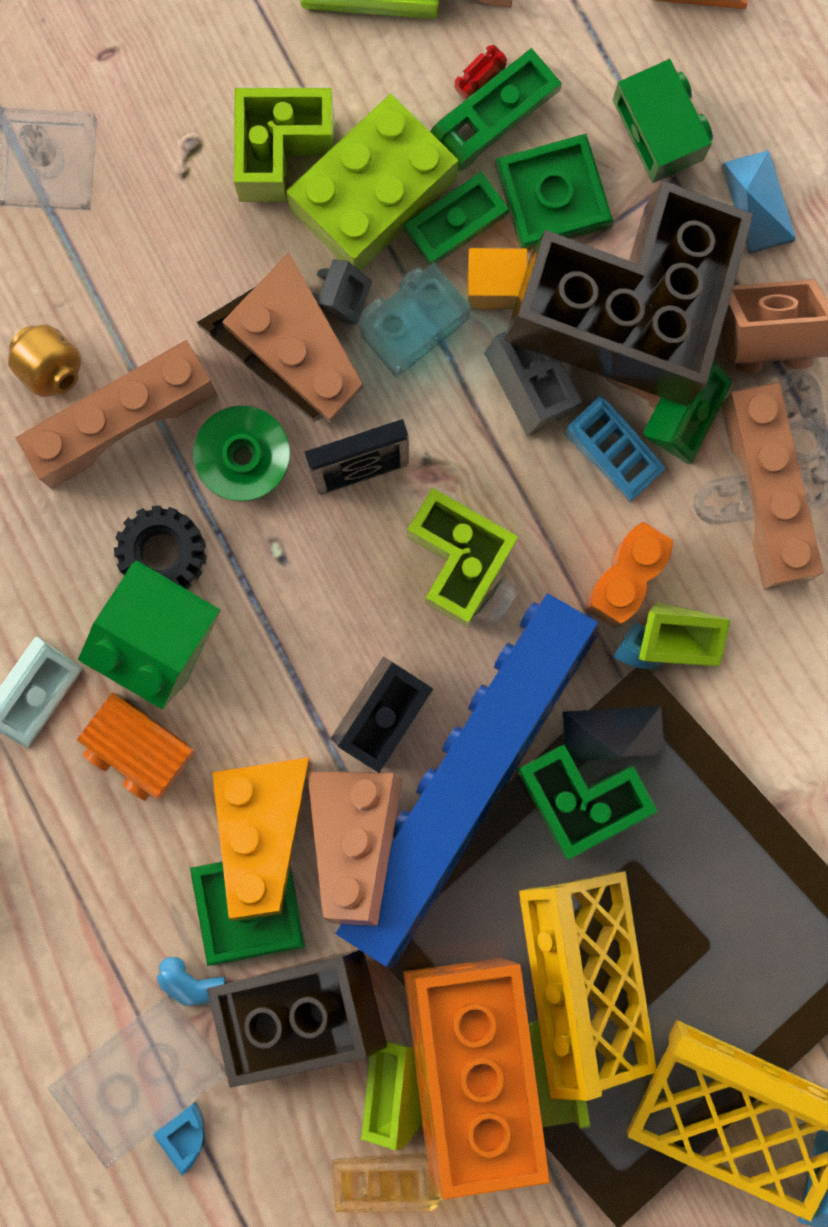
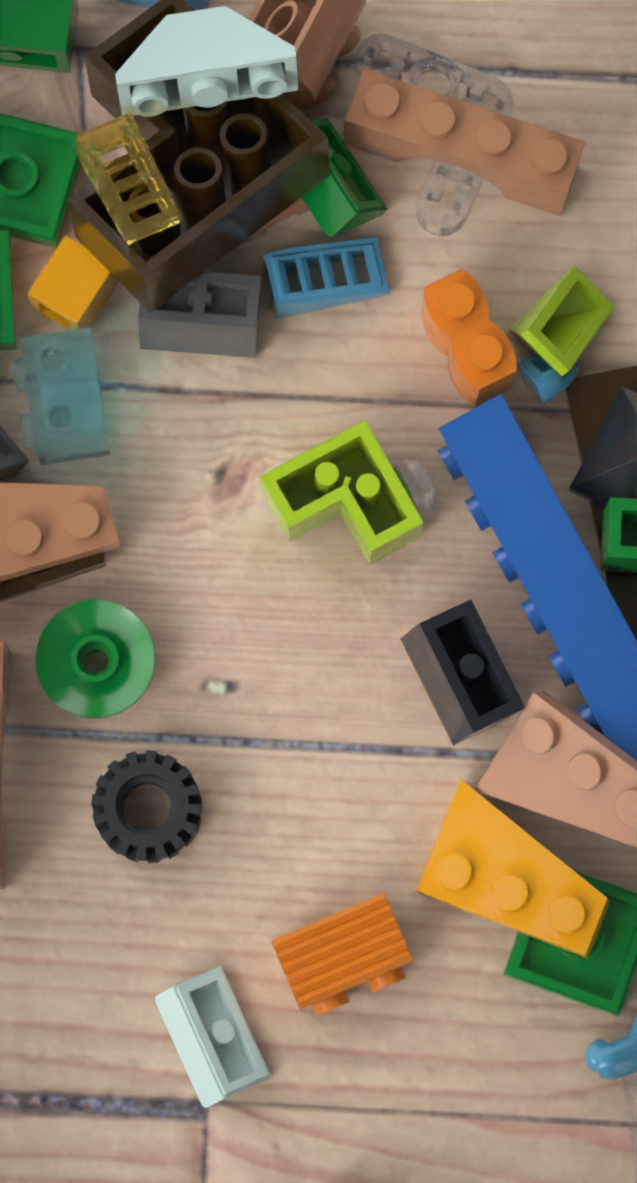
camera: 60 degrees left, 5 degrees down
(149, 635) = (234, 864): green slope -> none
(359, 457) = (184, 531): black tile -> none
(605, 229) = (107, 138): none -> clear yellow slope
(705, 263) = (204, 62): none -> light aqua slope

